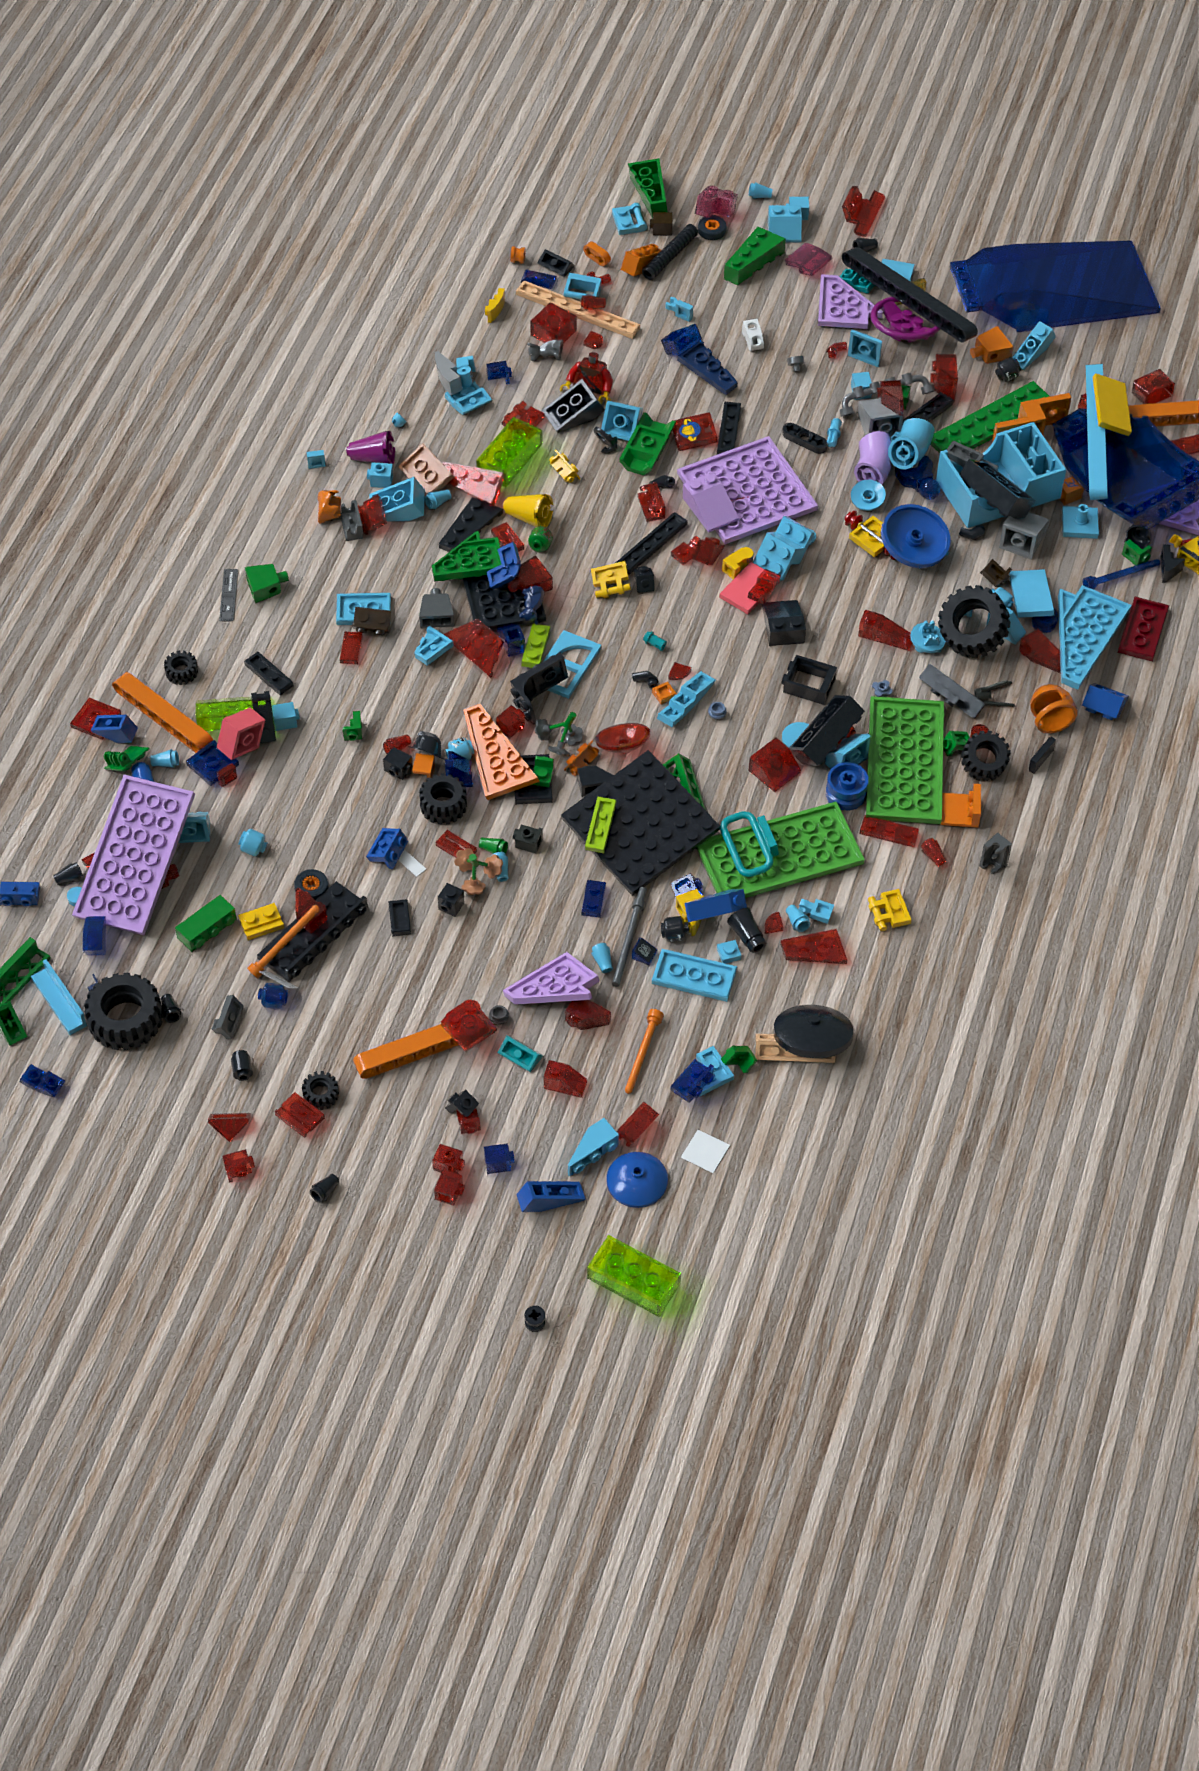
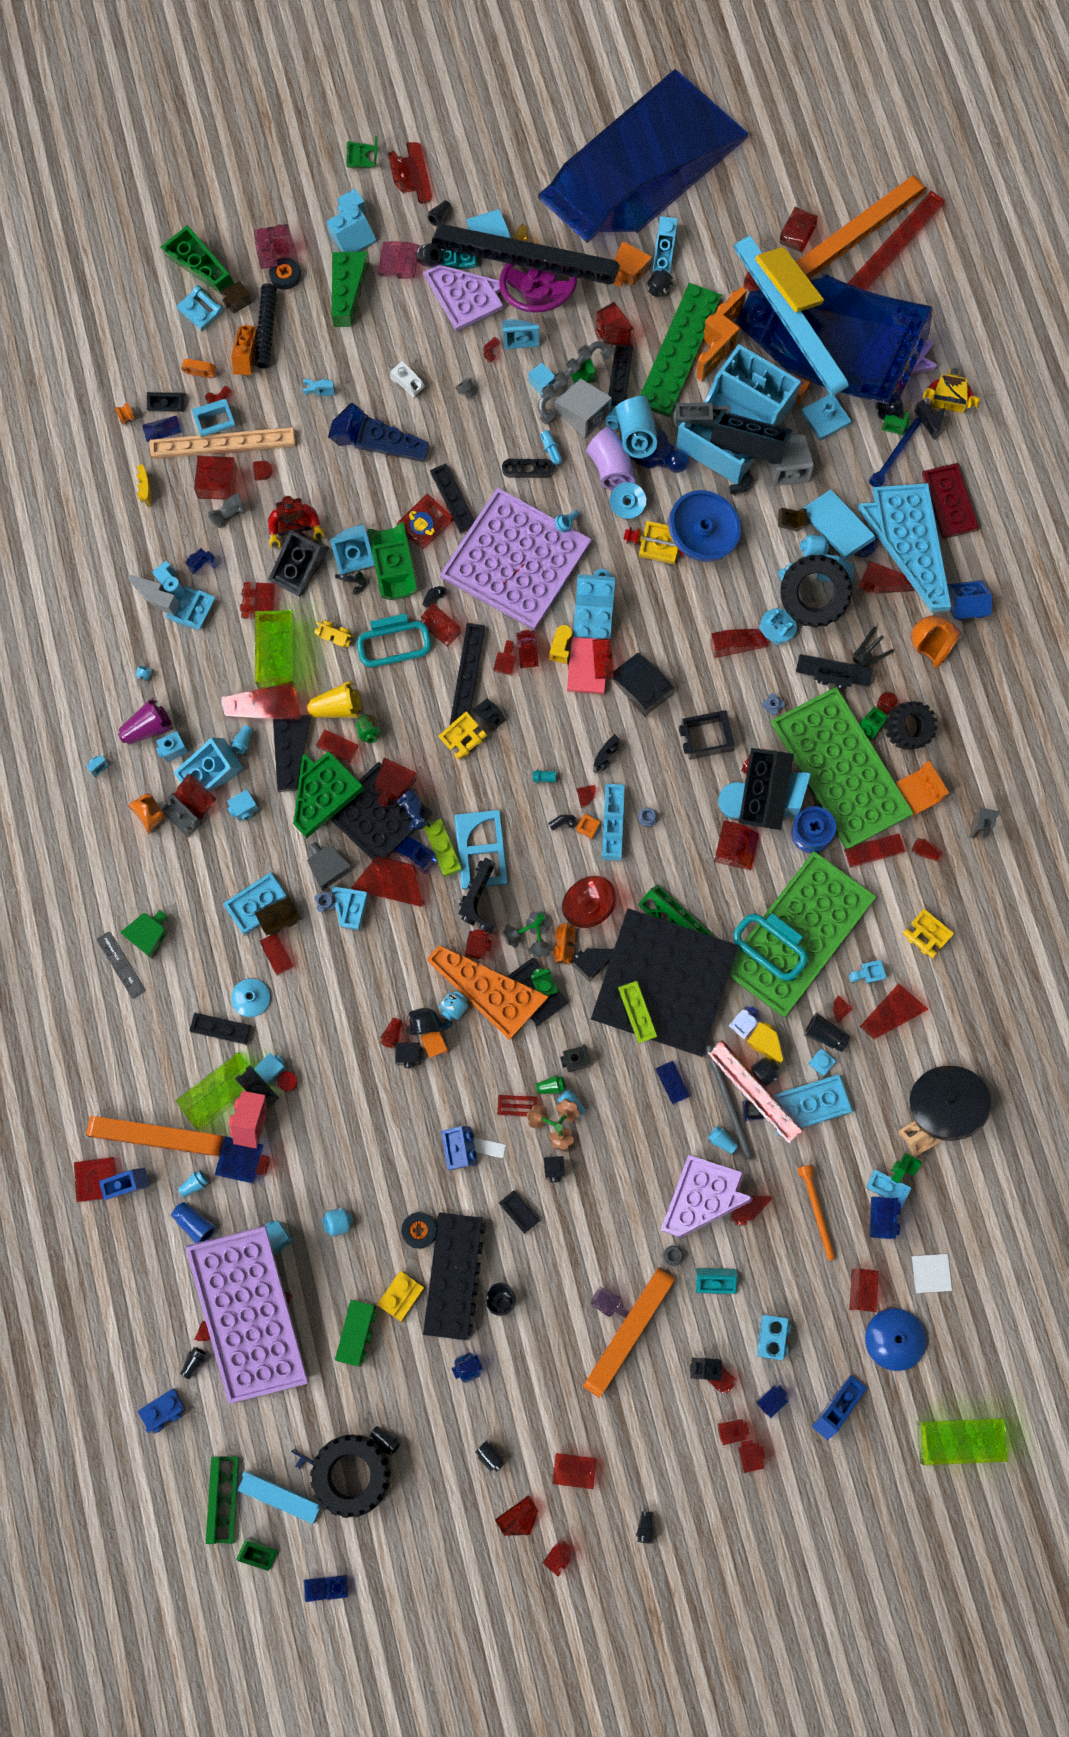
camera: 30 degrees left, 20 degrees up
(73, 894) = (214, 1380): medium azure tile -> none
(94, 935) = (266, 1414): clear blue slope -> none
(124, 760) = (158, 1208): green hinge -> none
(181, 675) = (130, 1065): black tyre -> none
(229, 1017) = (444, 1412): dark grey hinge -> none
(256, 967) = (434, 1349): orange piece -> none
(276, 978) = (460, 1348): white sticker -> none
(291, 733) = (287, 1081): none -> red tile
(303, 904) = (441, 1267): clear red slope -> none
(308, 666) = (254, 1006): none -> medium azure dish
(320, 1080) = (588, 1434): black tyre -> none
(337, 963) = (500, 1299): none -> black hair
(354, 731) = (340, 1037): green bracket -> none
(403, 539) = (242, 806): none -> medium azure brick
(415, 633) = (324, 906): none -> sand blue plate
(419, 1014) = (608, 1303): none -> clear purple piece
(426, 469) = (211, 717): tile -> none
(443, 810) = (475, 1084): black tyre -> none
(459, 767) = (470, 1030): clear blue slope -> none
(468, 1024) = (662, 1291): clear red slope -> none
(509, 566) = (370, 785): blue plate -> none
(530, 1112) = (767, 1336): none -> medium azure brick
(531, 1322) = (902, 1531): black wheel -> none
(564, 1079) = (774, 1285): clear red slope -> none
(592, 302) = (234, 431): clear red cone -> none
(596, 1142) = (841, 1331): medium azure slope -> none
(609, 481) = (388, 626): none -> teal bar
(655, 935) = (755, 1091): none -> clear red tile
(709, 502) = (497, 597): lavender slope -> none
(710, 651) = (603, 759): none -> black slope
(715, 904) = (790, 1030): blue slope -> none
(759, 191) = (300, 205): medium azure cone -> none
(799, 921) = (858, 992): medium azure cone -> none
(803, 481) = (564, 522): none -> medium azure plate
(830, 179) = (356, 154): none -> green piece
(834, 265) = (429, 255): none -> black head
(891, 396) = (588, 383): clear red slope -> none
(1042, 754) = (952, 691): black tile -> none

